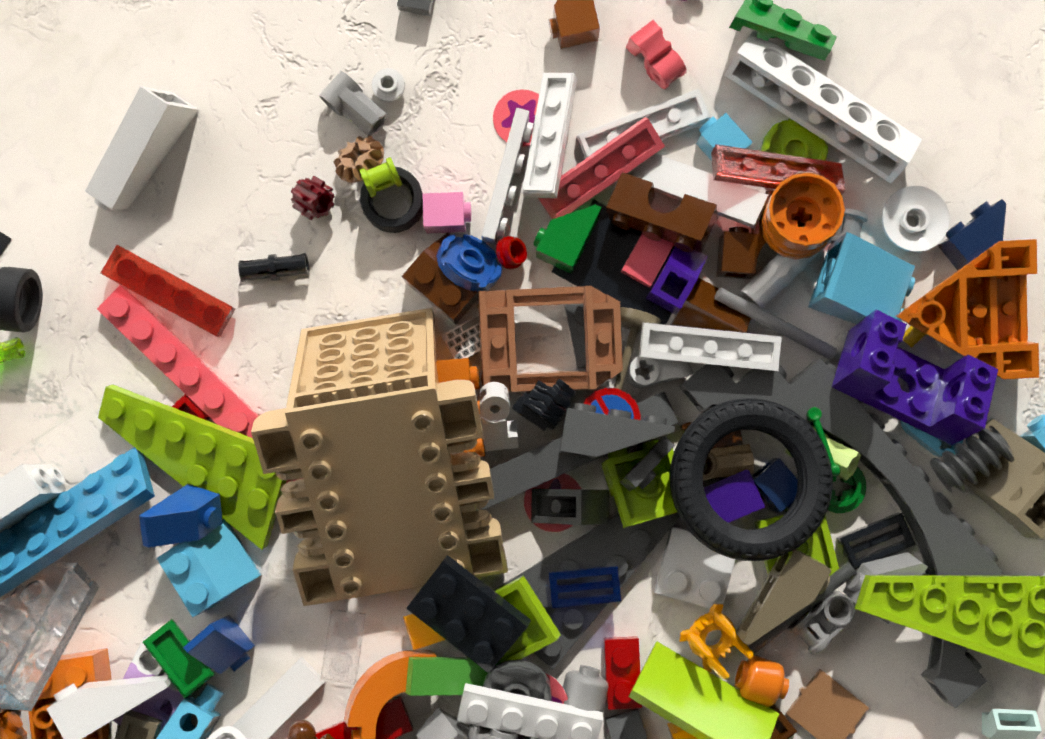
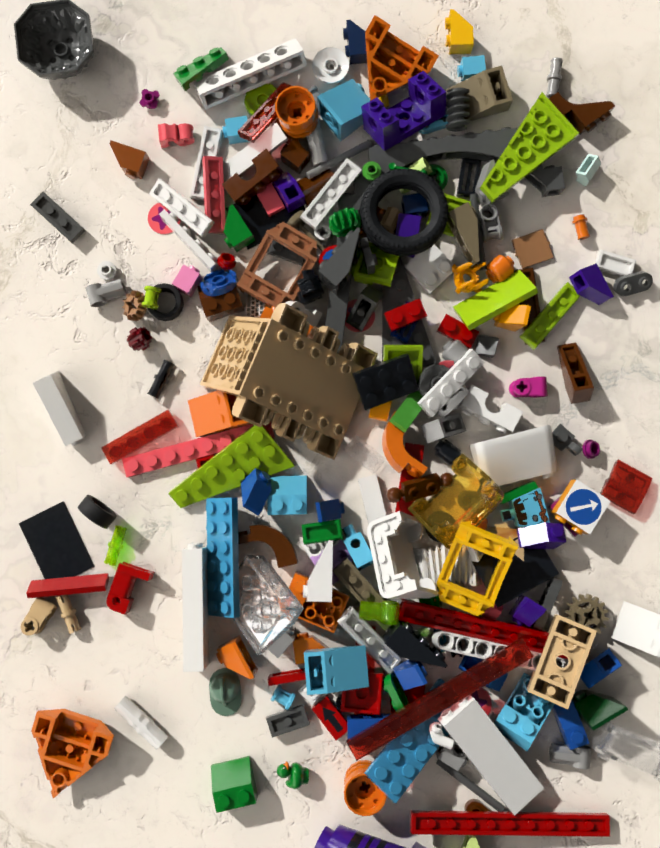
camera: 60 degrees left, 0 degrees up
(132, 586) = (276, 539): none -> reddish brown arch
(261, 373) = (213, 413): none -> orange slope
(592, 579) = (405, 315): none -> red plate
(677, 397) = (344, 221): none -> green gear
(776, 391) = (368, 175): none -> bright green plate

